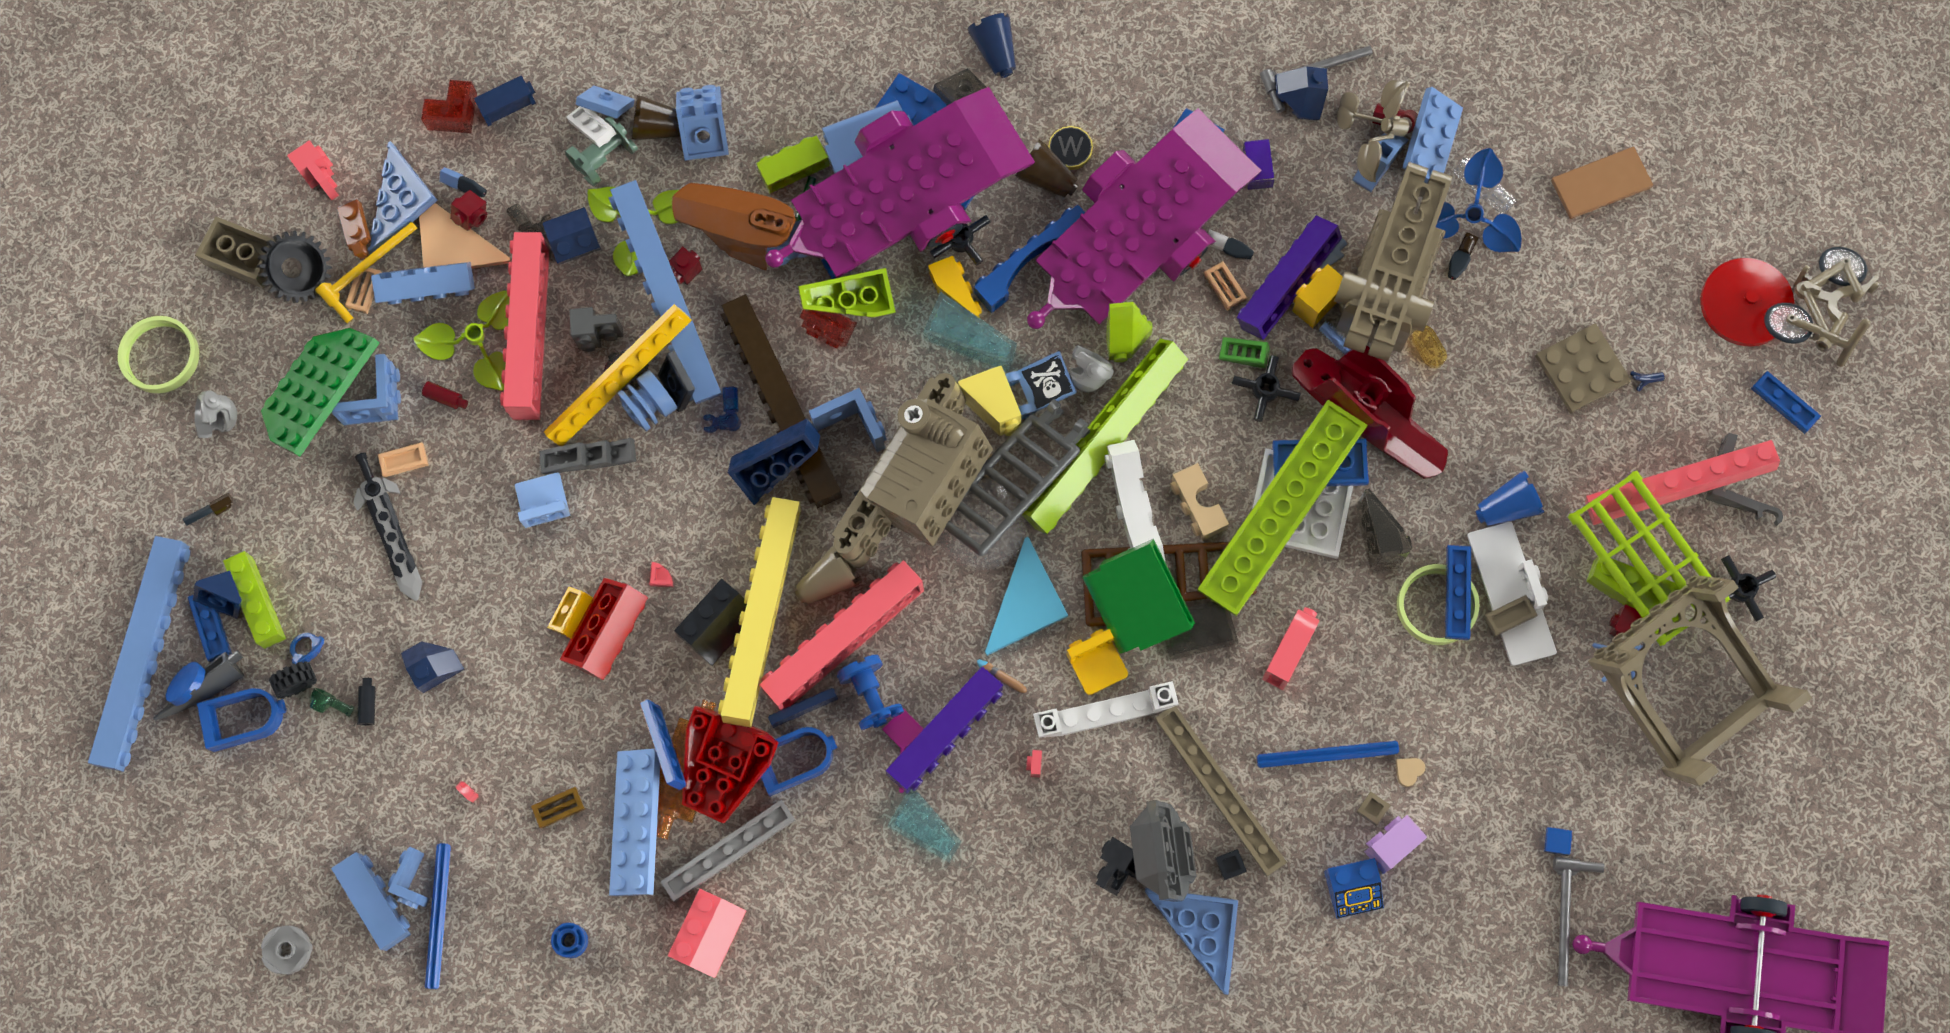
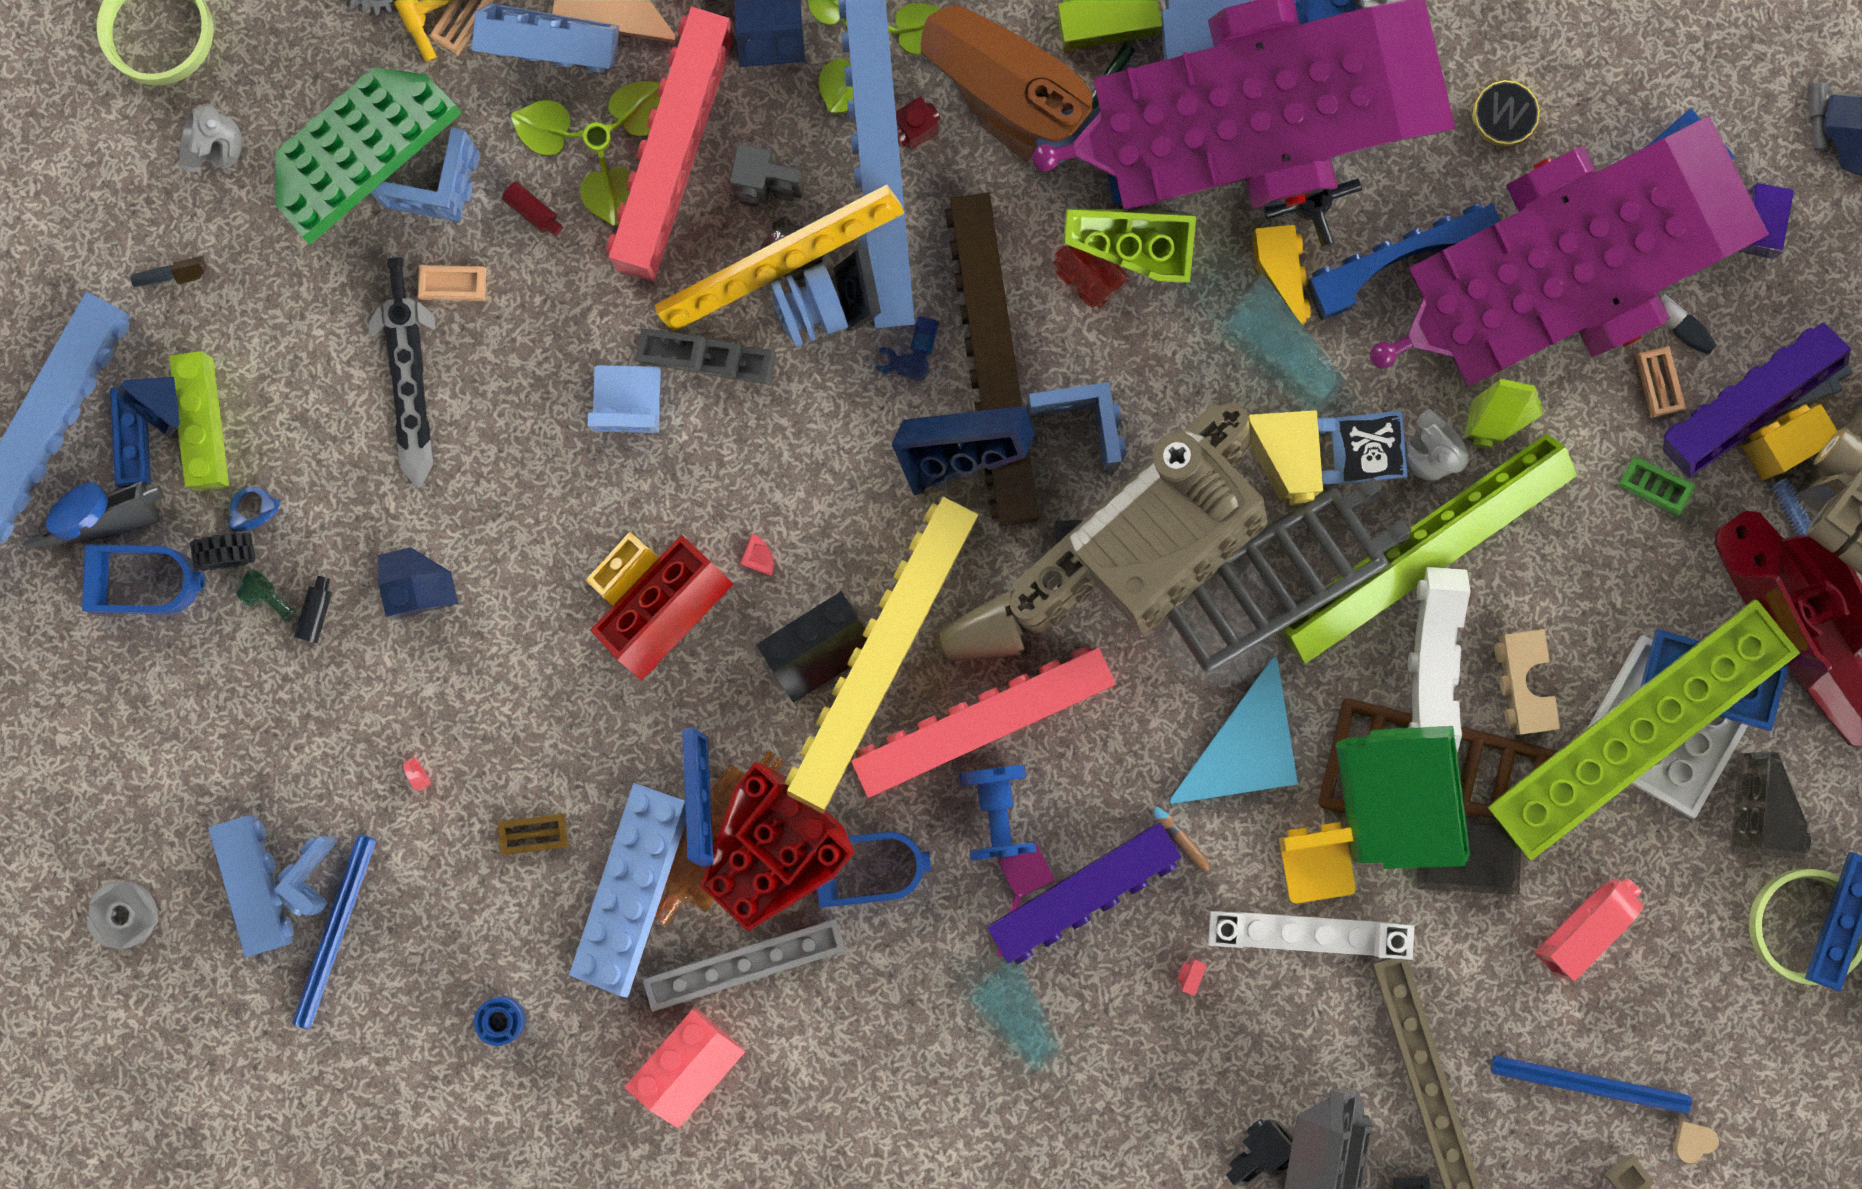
camera: 15 degrees right, 10 degrees up
(802, 707) = (900, 801): dark blue tile -> none
(1048, 172) = (1469, 144): dark brown cone -> none
(1265, 396) = (1685, 547): black bar -> none

